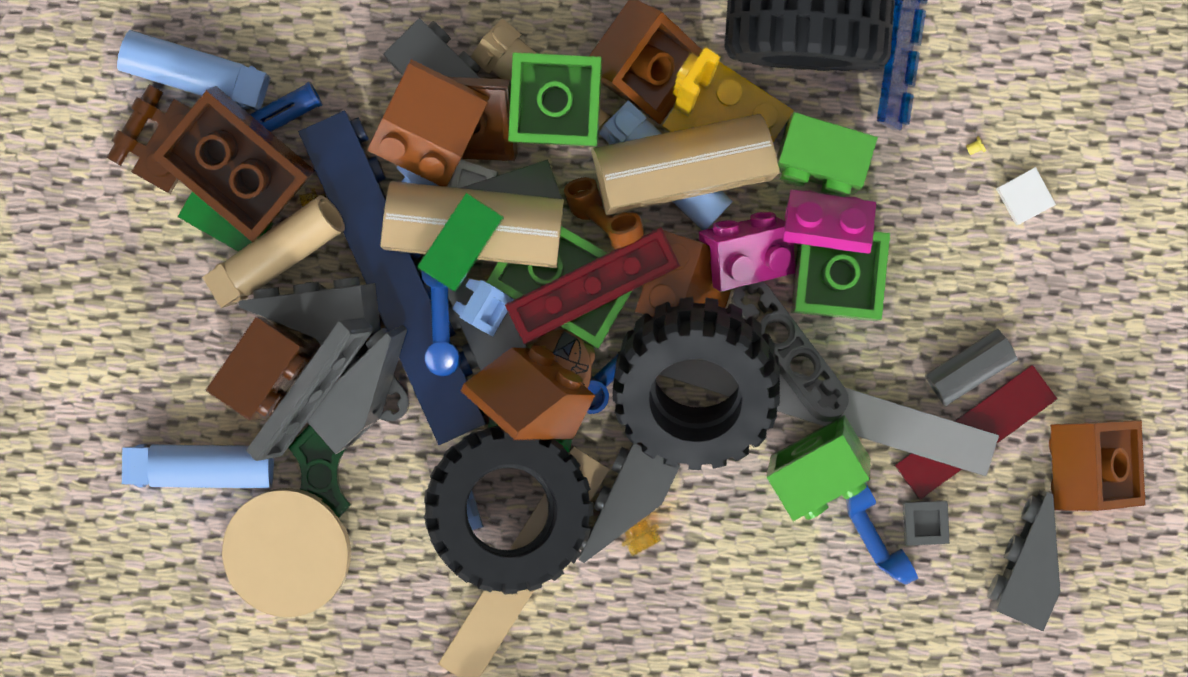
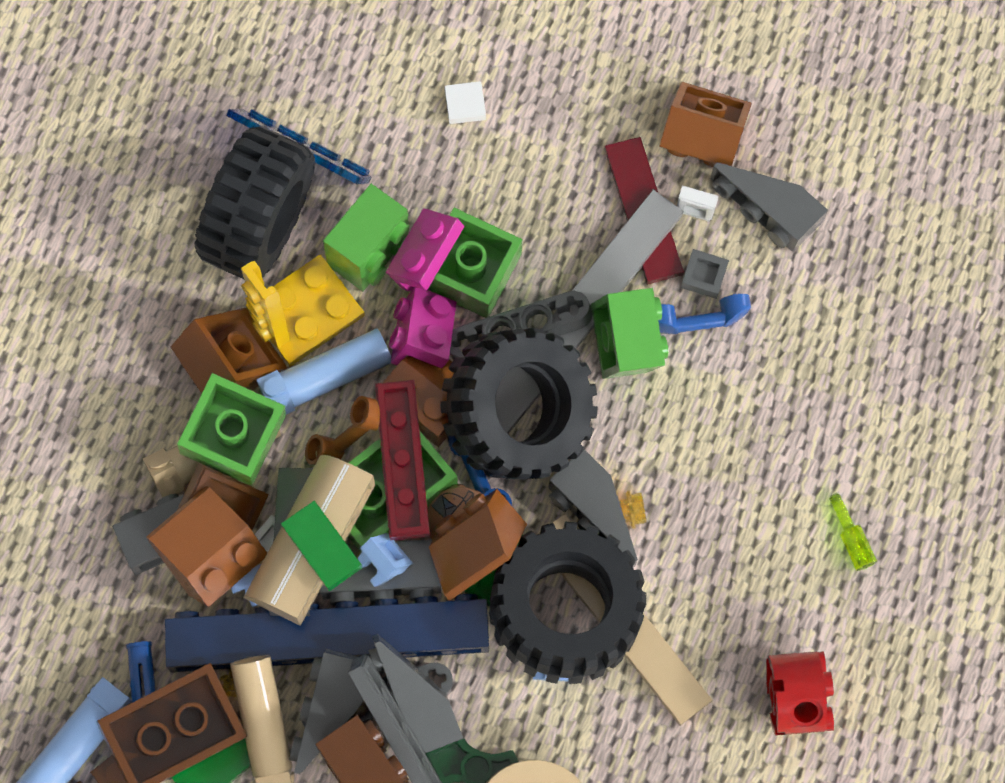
camera: 75 degrees left, 15 degrees down
(441, 356) = (413, 609): blue bar -> none
(685, 163) = (329, 349): tan brick -> none
(971, 367) = (589, 192): dark grey axle -> none
(975, 146) = (408, 125): light yellow piece -> none
(1001, 487) = (697, 203): none -> white tile

